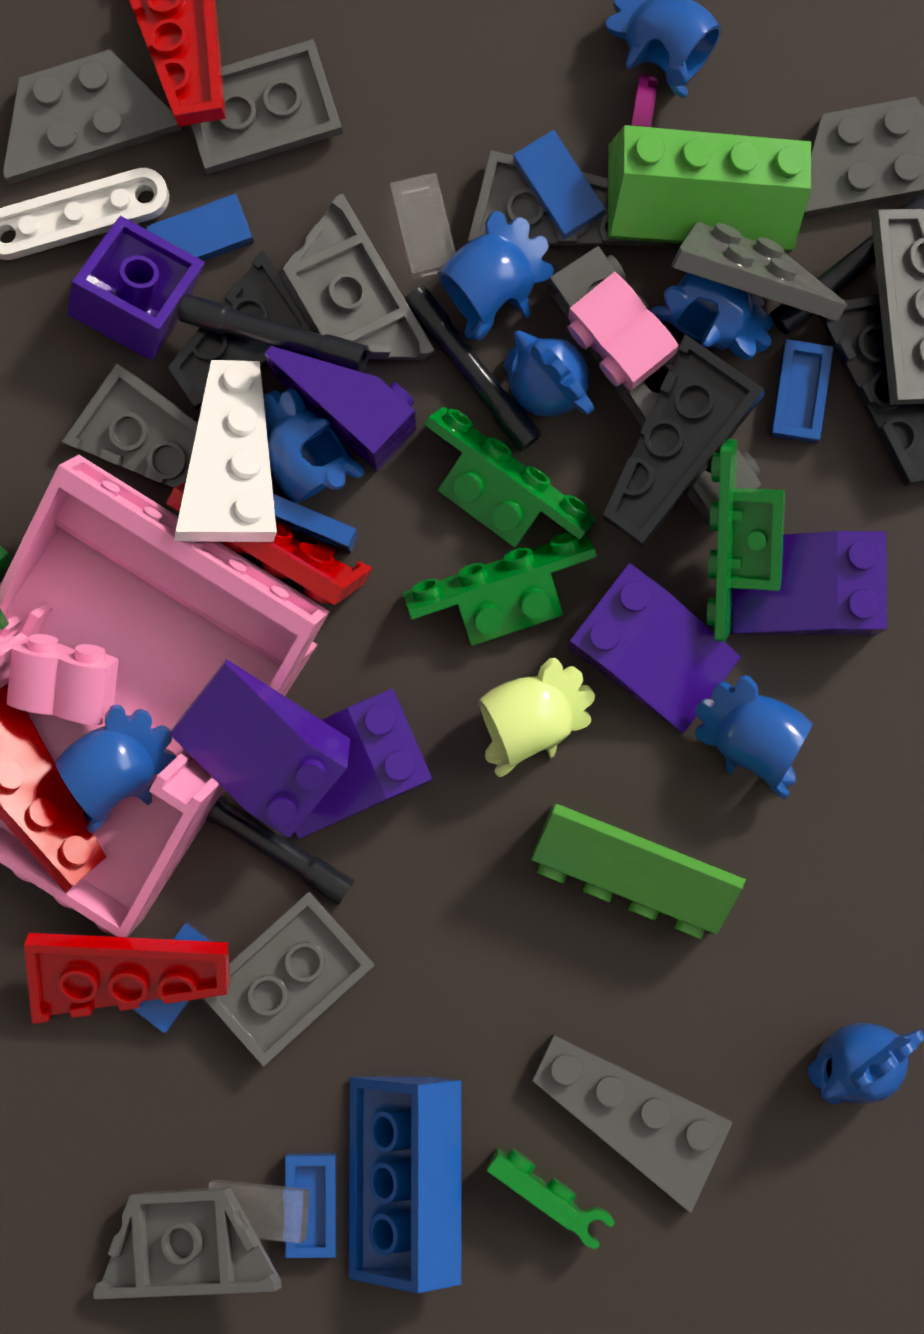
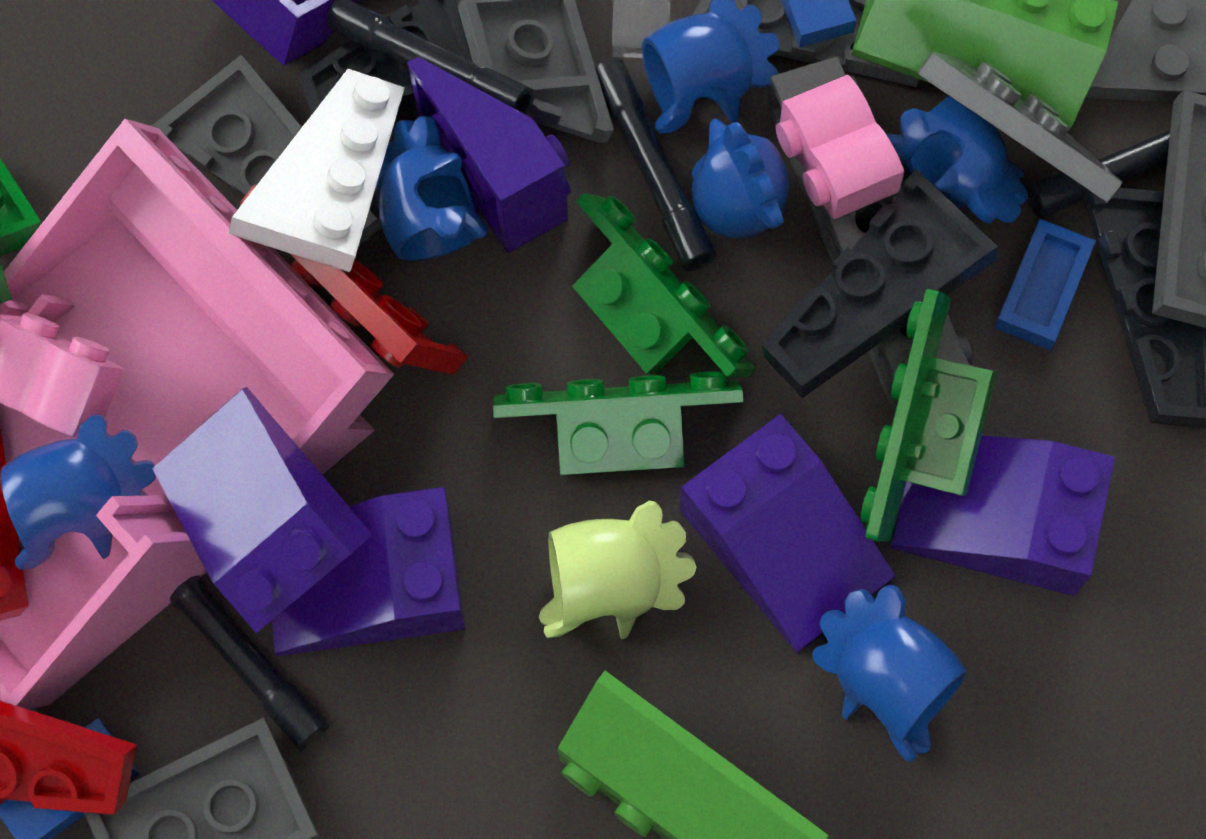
camera: 20 degrees right, 15 degrees down
(315, 524) = (410, 282): blue tile -> none

